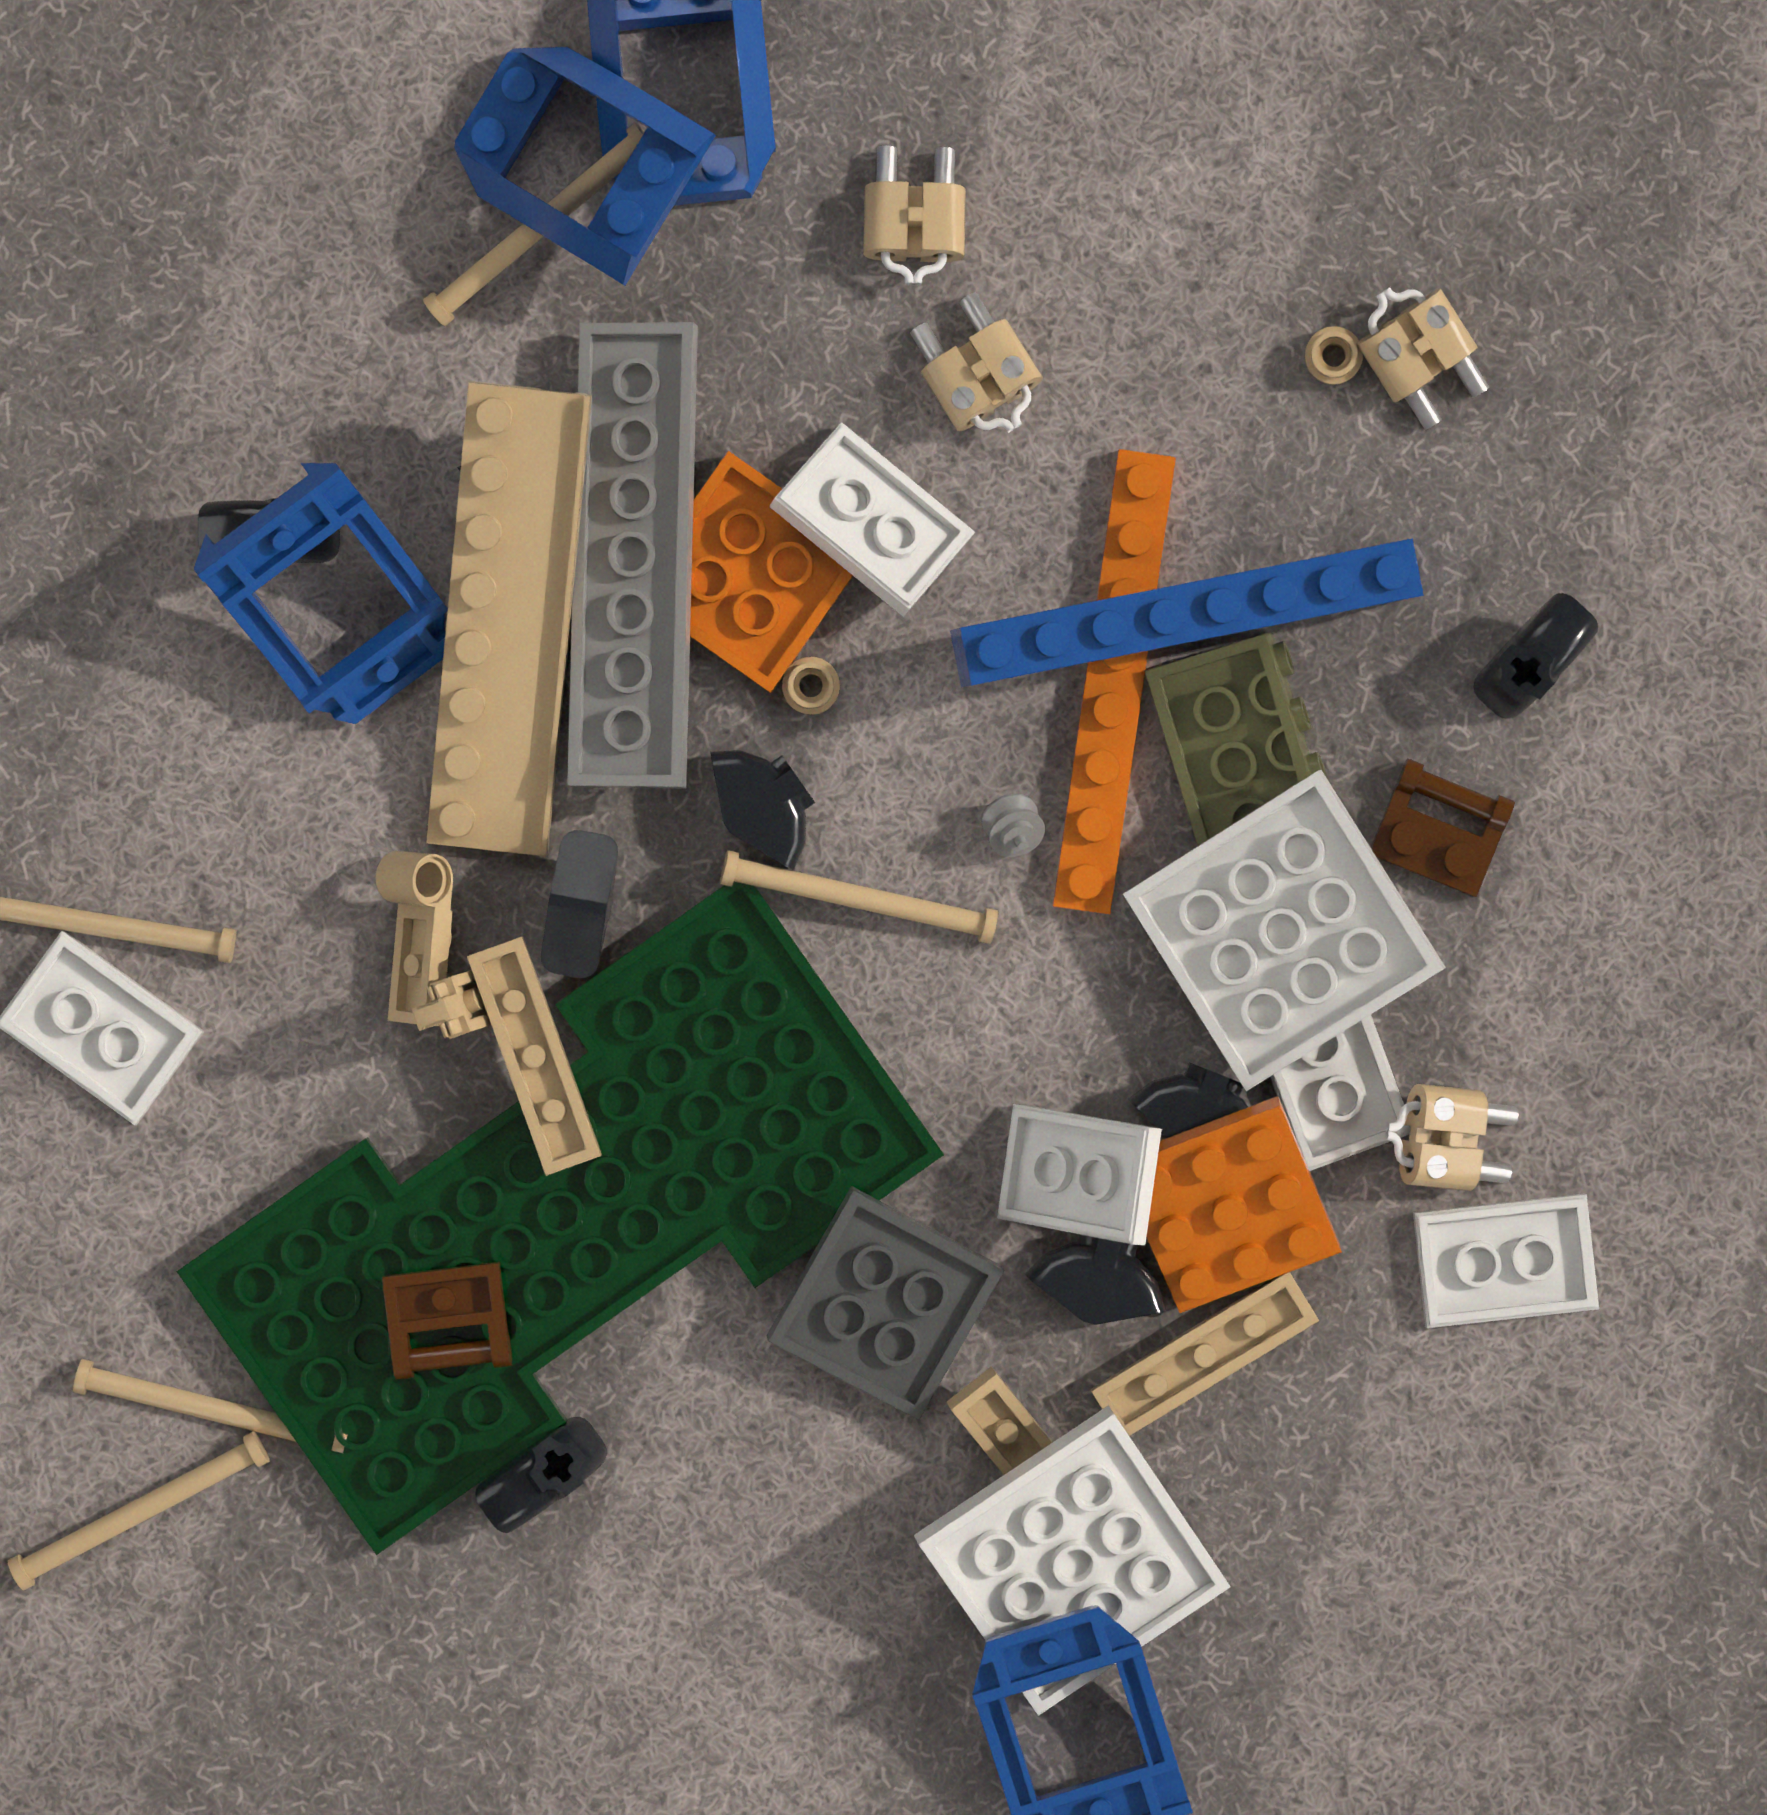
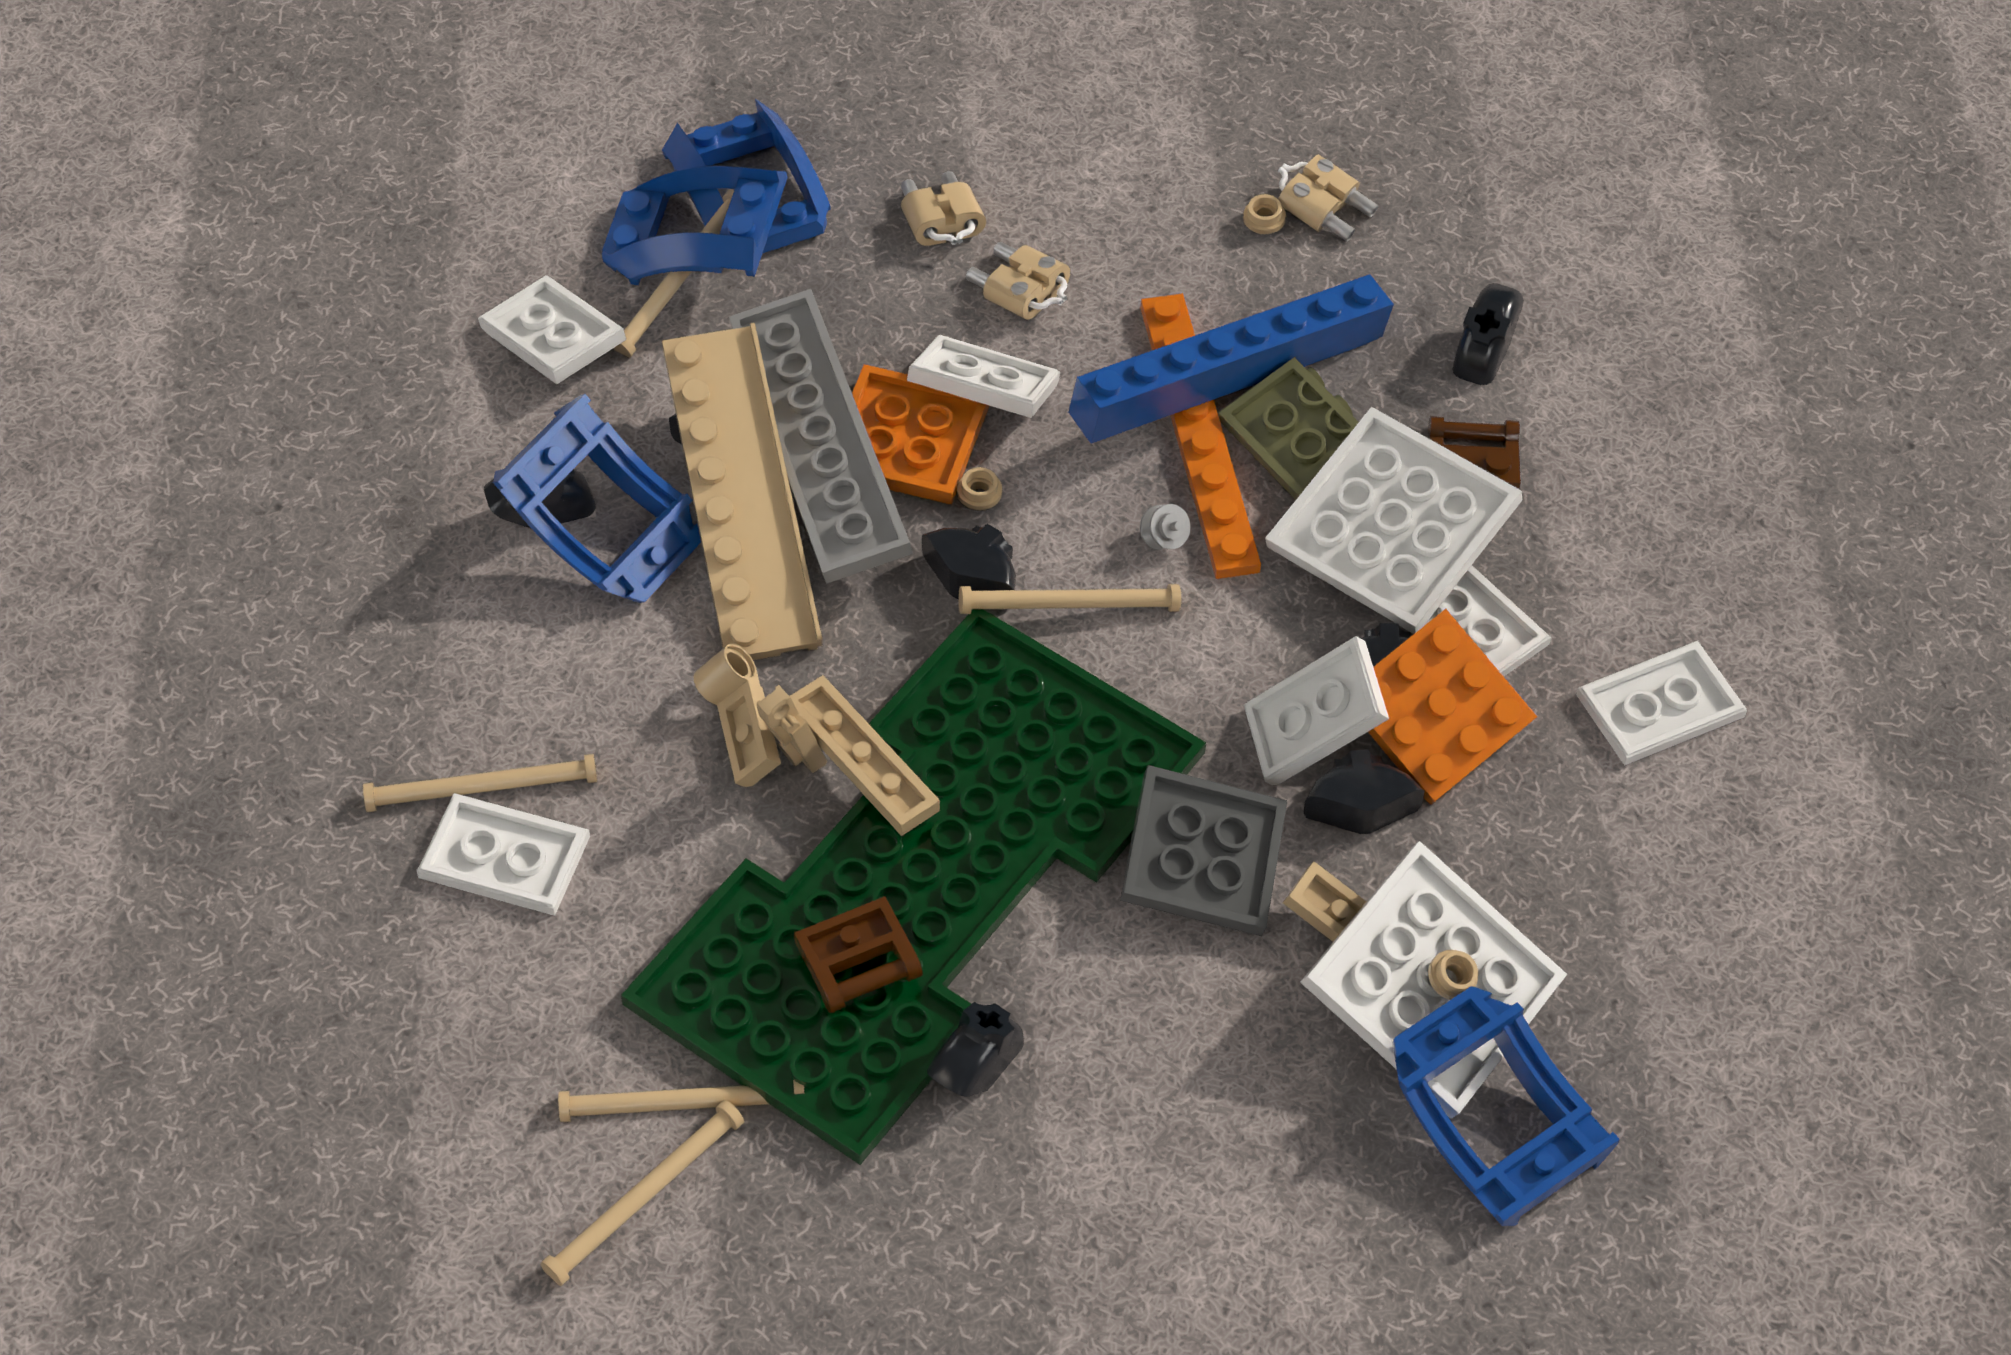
camera: 20 degrees left, 35 degrees down
(354, 260) = (552, 329): none -> white tile
(579, 904) = (859, 649): black piece -> none
(1096, 1590) = (1460, 964): none -> tan plate
(1206, 1353) = (1480, 808): tan plate -> none
(1445, 1137) = (1576, 627): tan piece -> none

